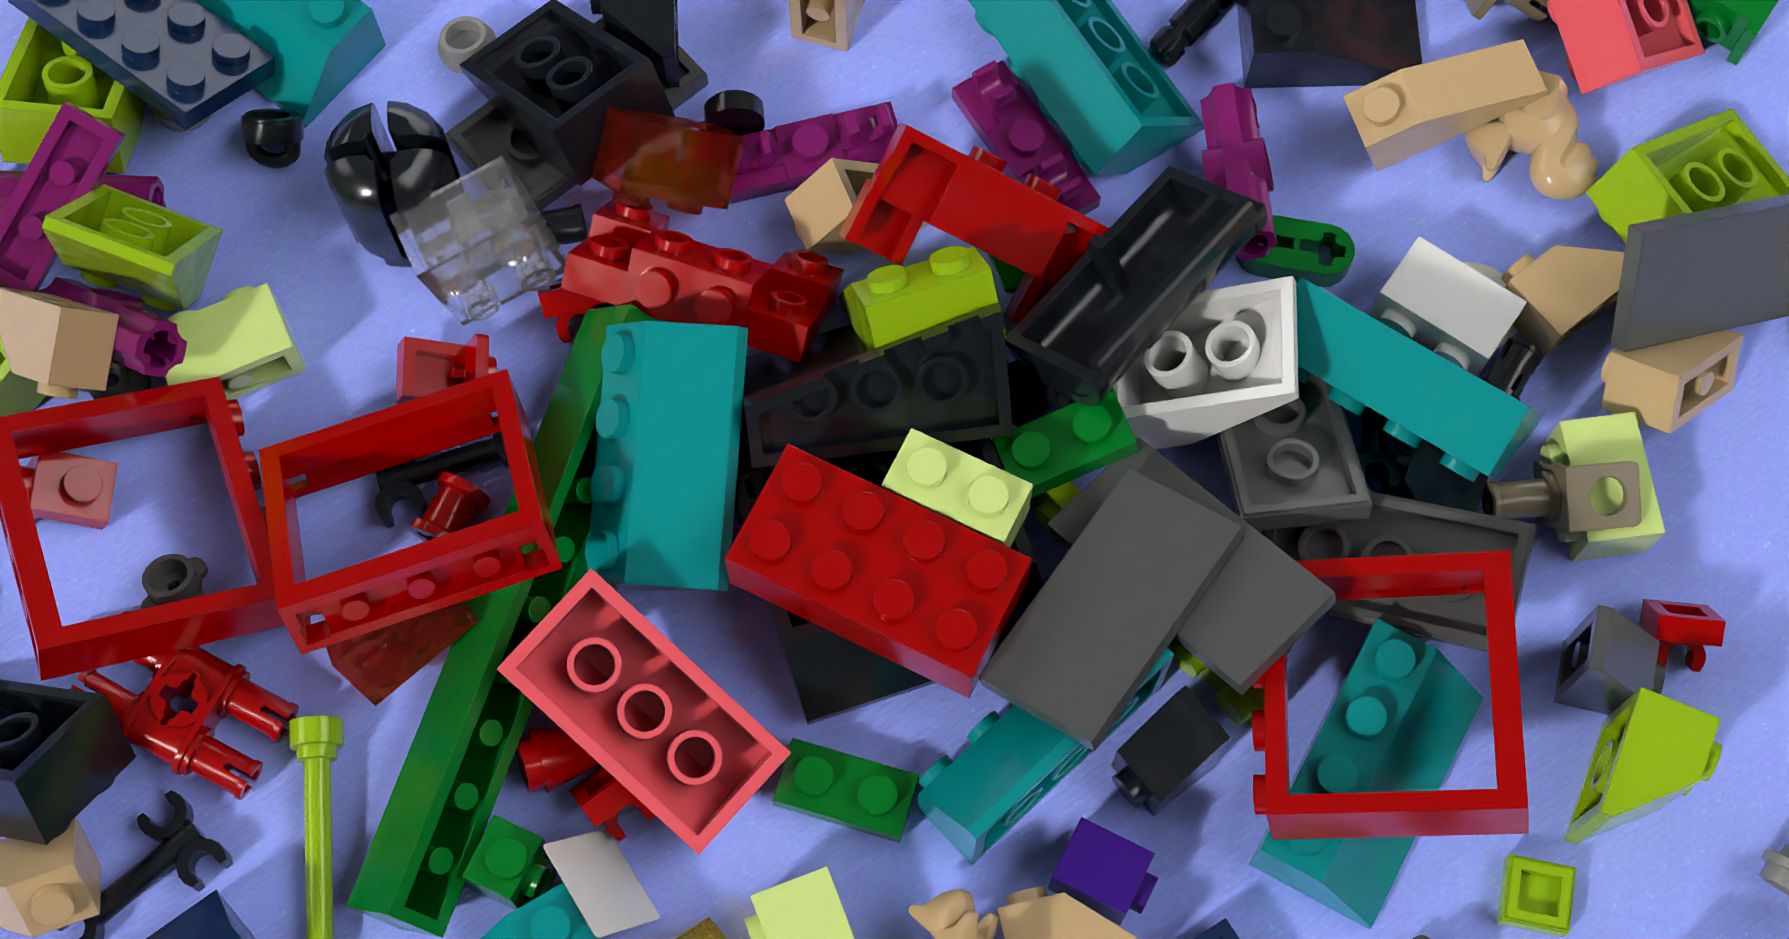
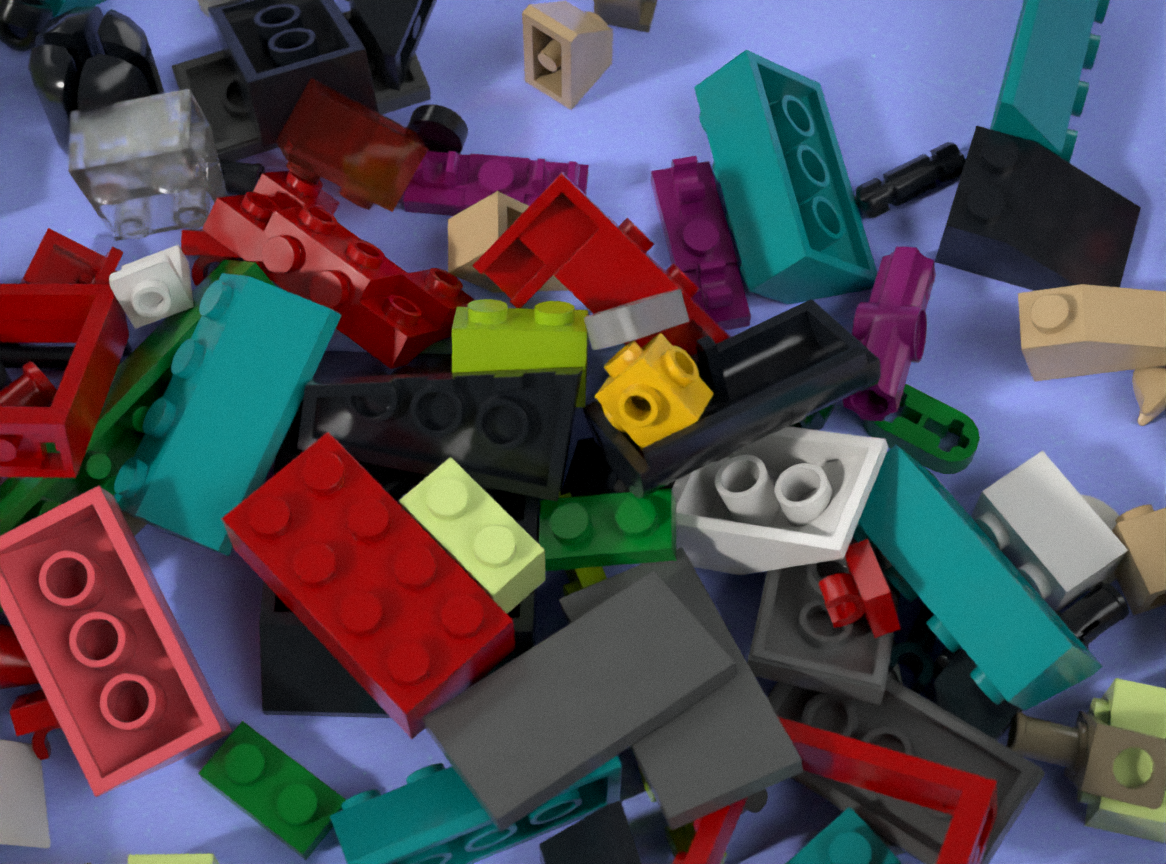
camera: 20 degrees right, 5 degrees down
(537, 358) = (154, 286): none -> white bracket
(1028, 240) = (636, 319): none -> light grey beam
(1072, 304) = (652, 391): none -> yellow brick
(1318, 422) = (860, 592): none -> red tile

